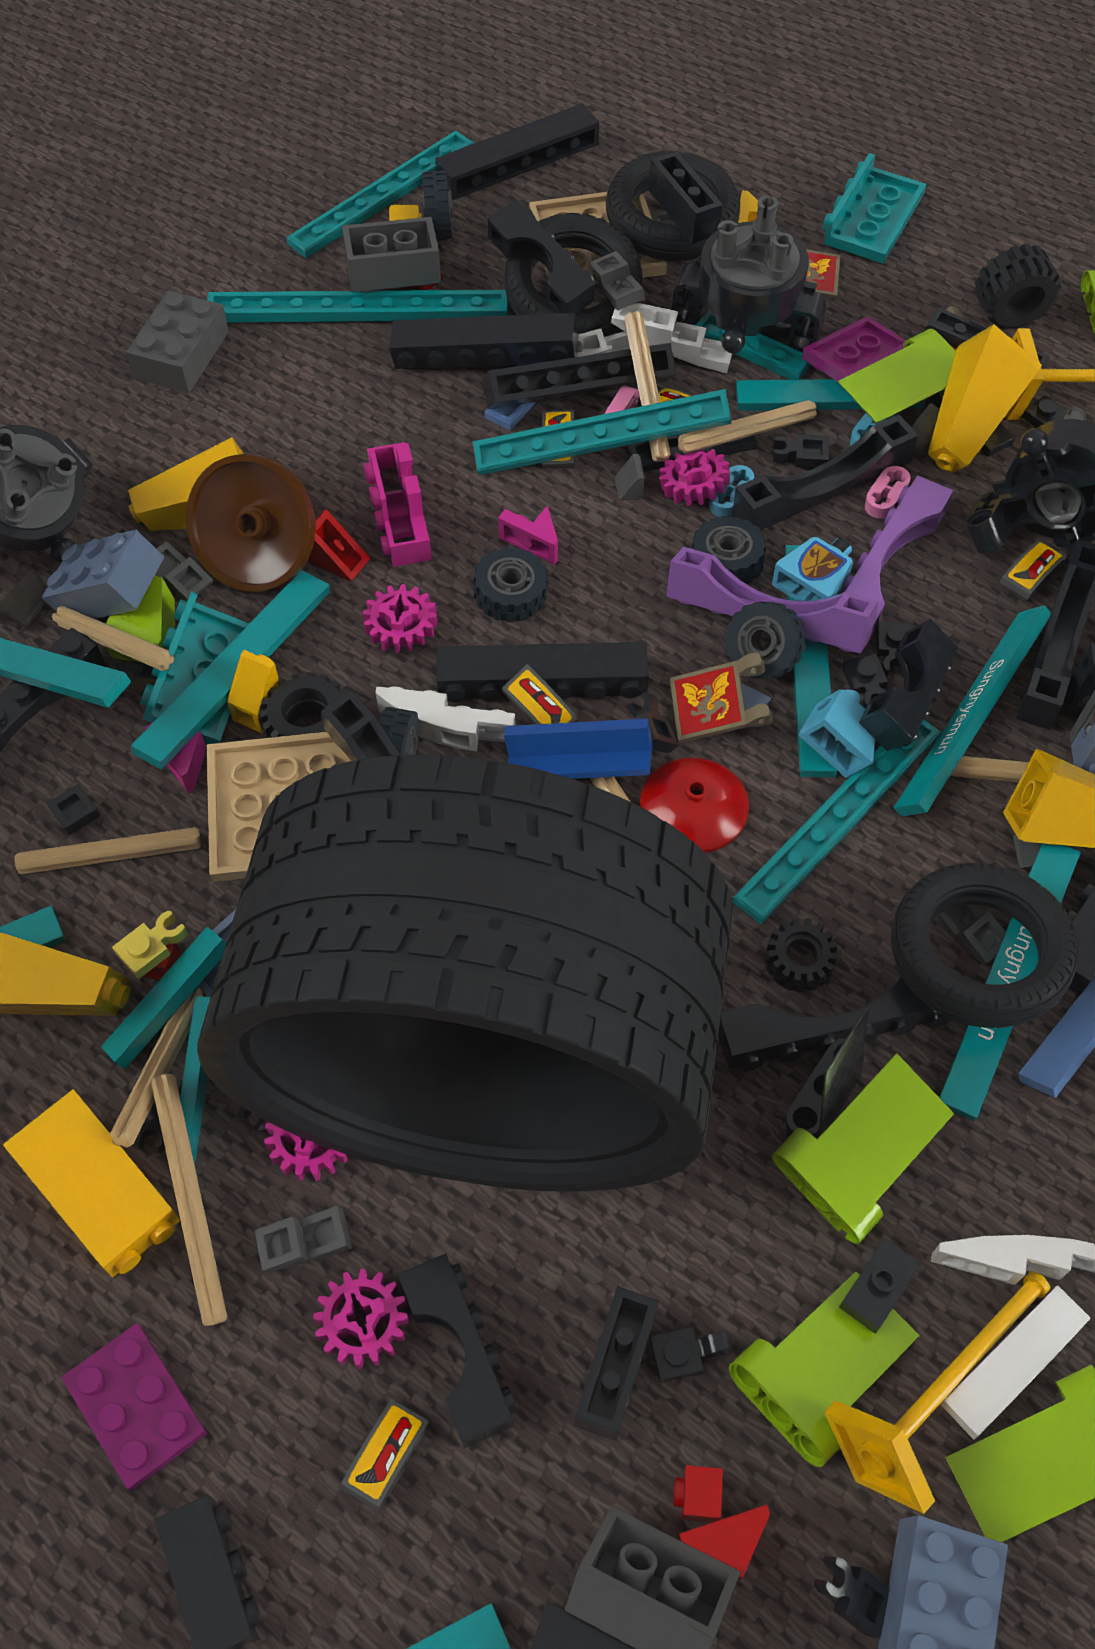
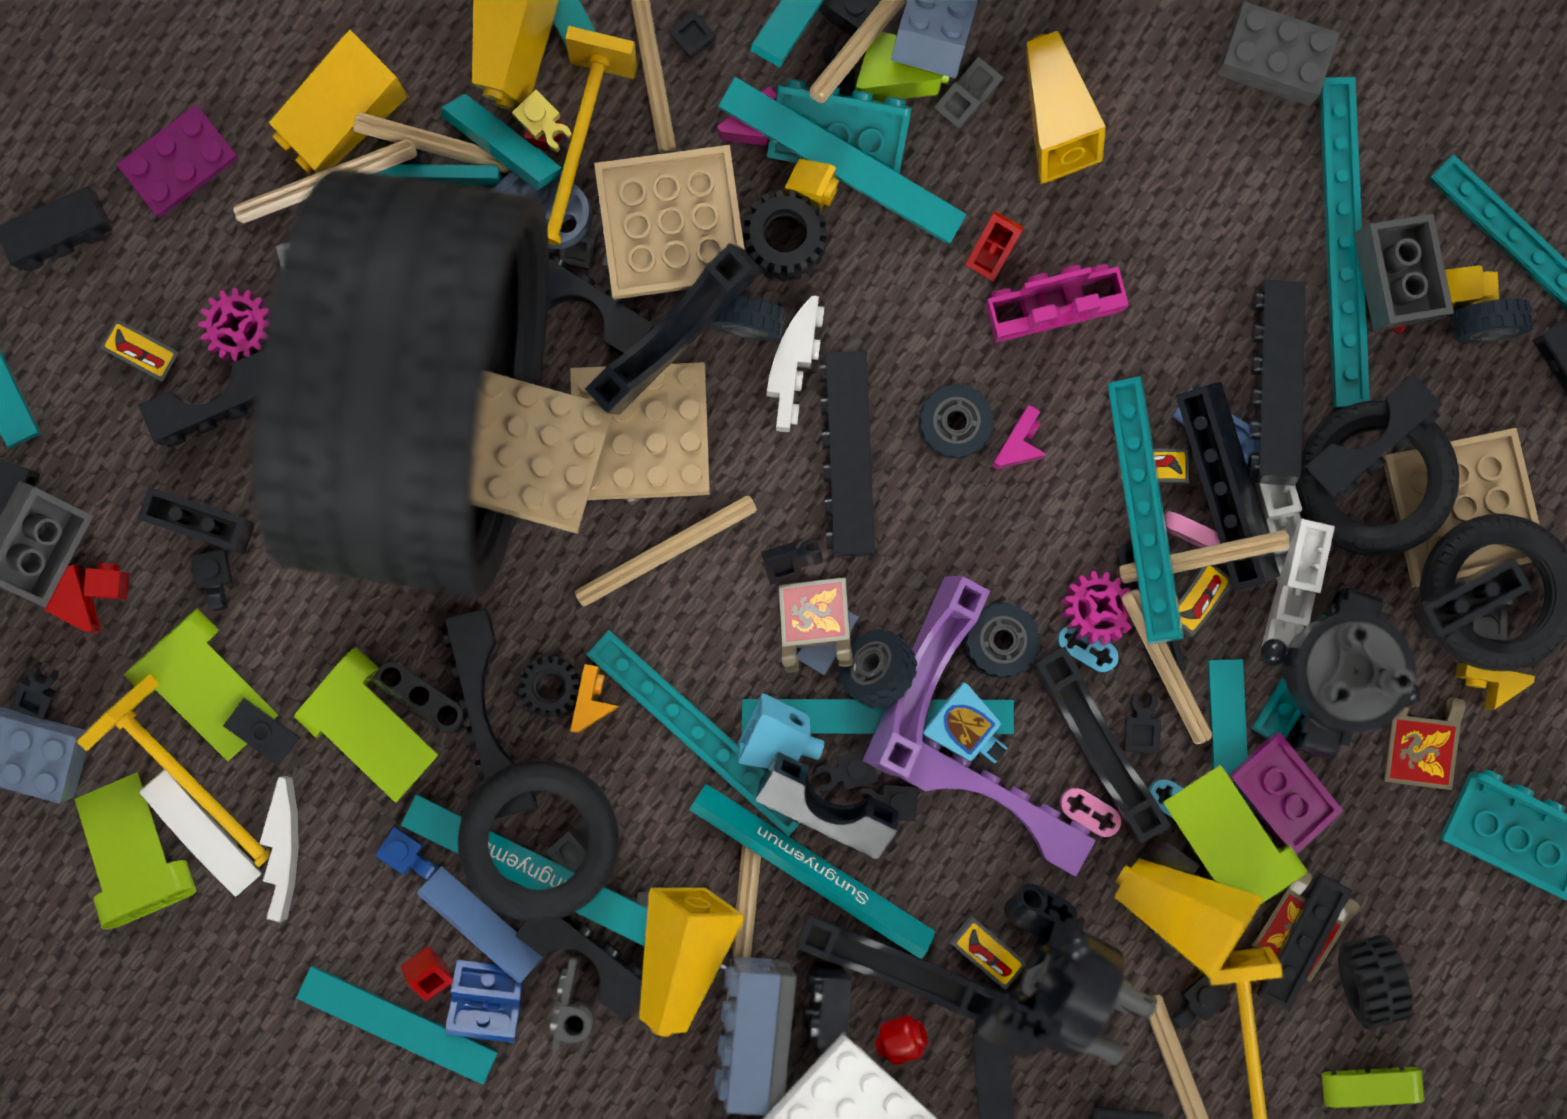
camera: 85 degrees right, 25 degrees up
(84, 881) = (601, 54): none -> yellow tile
(250, 522) = (1001, 157): reddish brown dish -> none
(400, 618) = (925, 314): dark pink gear -> none
(537, 698) = (805, 451): slope -> none
(583, 748) = (749, 489): blue panel -> none
(616, 281) = (1355, 523): dark grey slope -> none
(630, 480) = (1097, 542): dark grey slope -> none
(707, 818) = (714, 623): red dish -> none
(826, 909) = (587, 710): none -> light orange slope
(1007, 1118) = (403, 852): none -> blue plate

